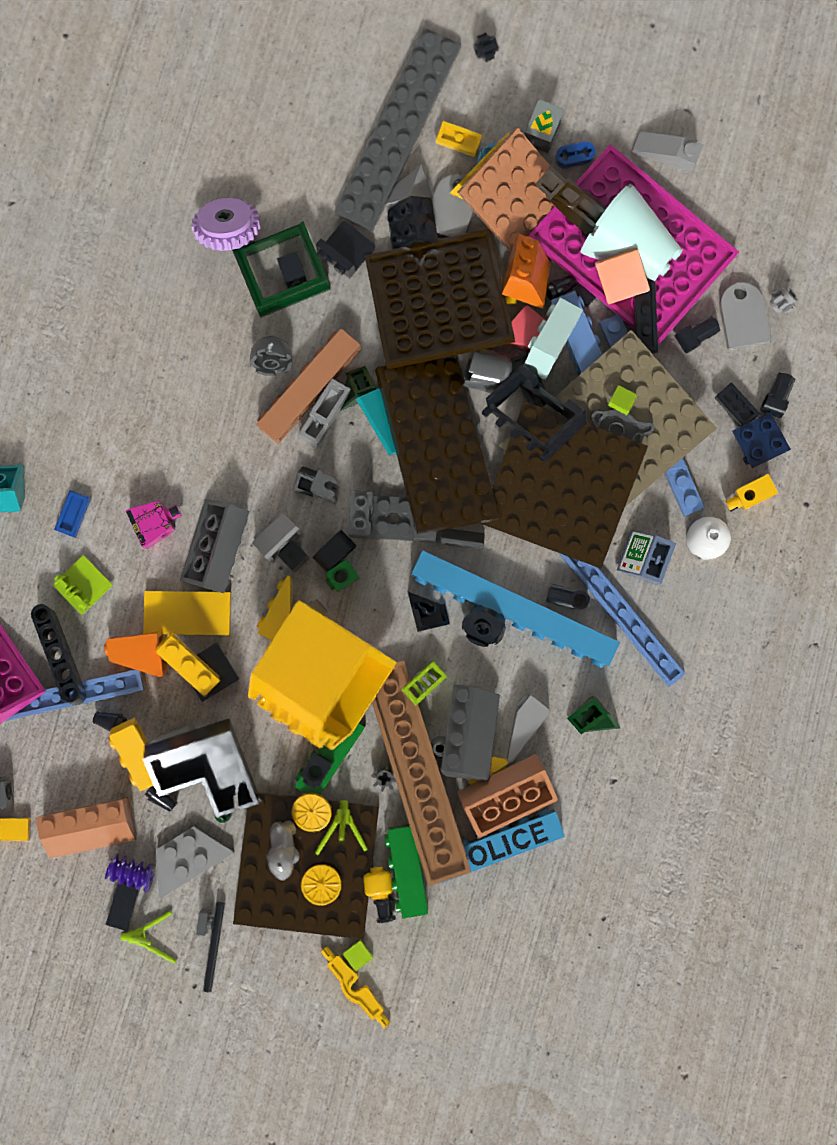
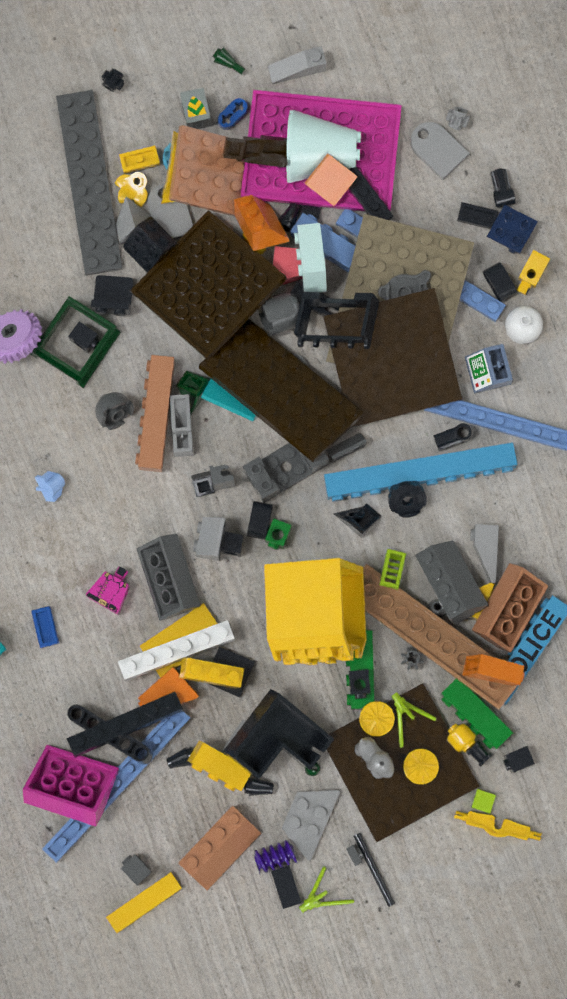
camera: 35 degrees left, 5 degrees down
(74, 656) = (124, 724): none -> black plate
(82, 584) = (89, 673): lime hinge -> none
(166, 386) = (50, 485): none -> light blue piece
(171, 620) = (176, 650): none -> white brick
(278, 608) = (253, 596): yellow slope -> none
(416, 941) = (518, 760): none -> black brick
(431, 162) = (129, 189): none -> yellow plate
(448, 848) = (493, 670): none -> orange slope
(592, 717) = (532, 510): dark green slope -> none
(603, 96) = (225, 59): none -> dark green cone
(622, 400) = (393, 267): lime tile -> none
(693, 336) = (411, 186): black piece -> none
(714, 481) = (499, 281): none -> black beam

